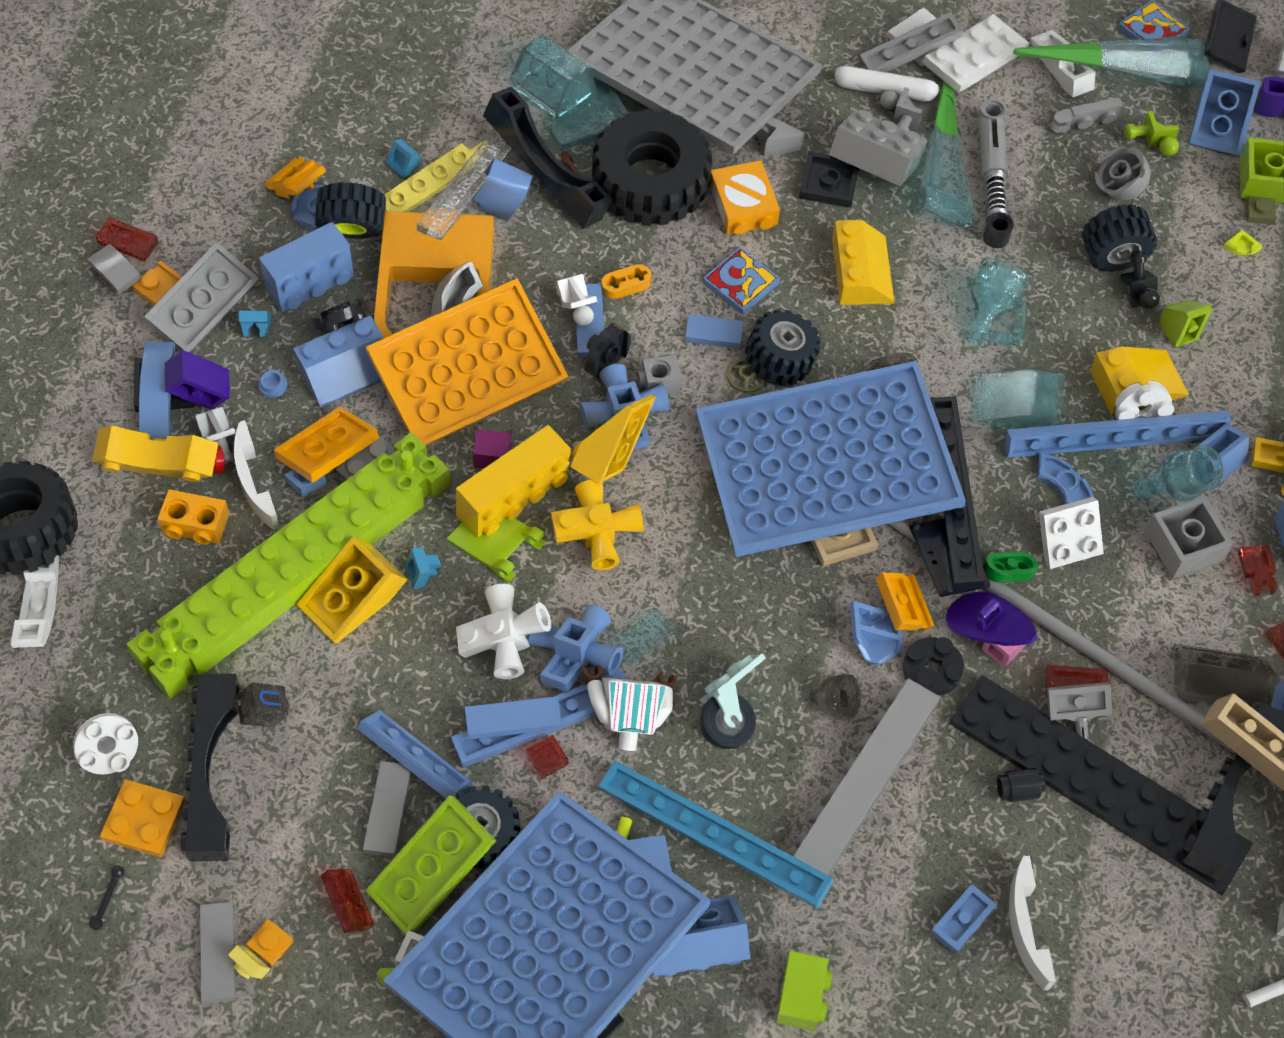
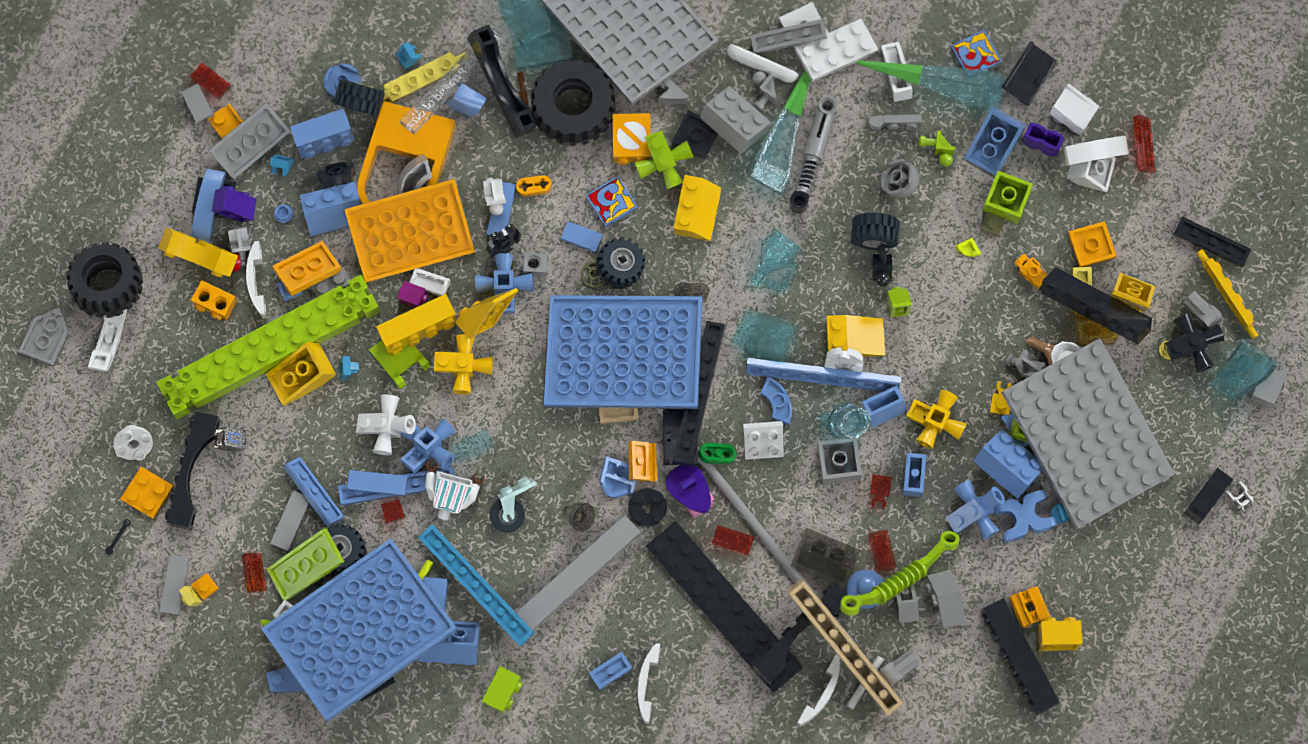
camera: 20 degrees right, 15 degrees up
(295, 177) = (331, 56): light orange piece -> none
(520, 426) = (431, 282): none -> white plate
(798, 210) = (663, 159): none -> lime brick
(1020, 785) = (673, 597): black brick -> none
(1079, 703) = (727, 555): light grey plate -> none

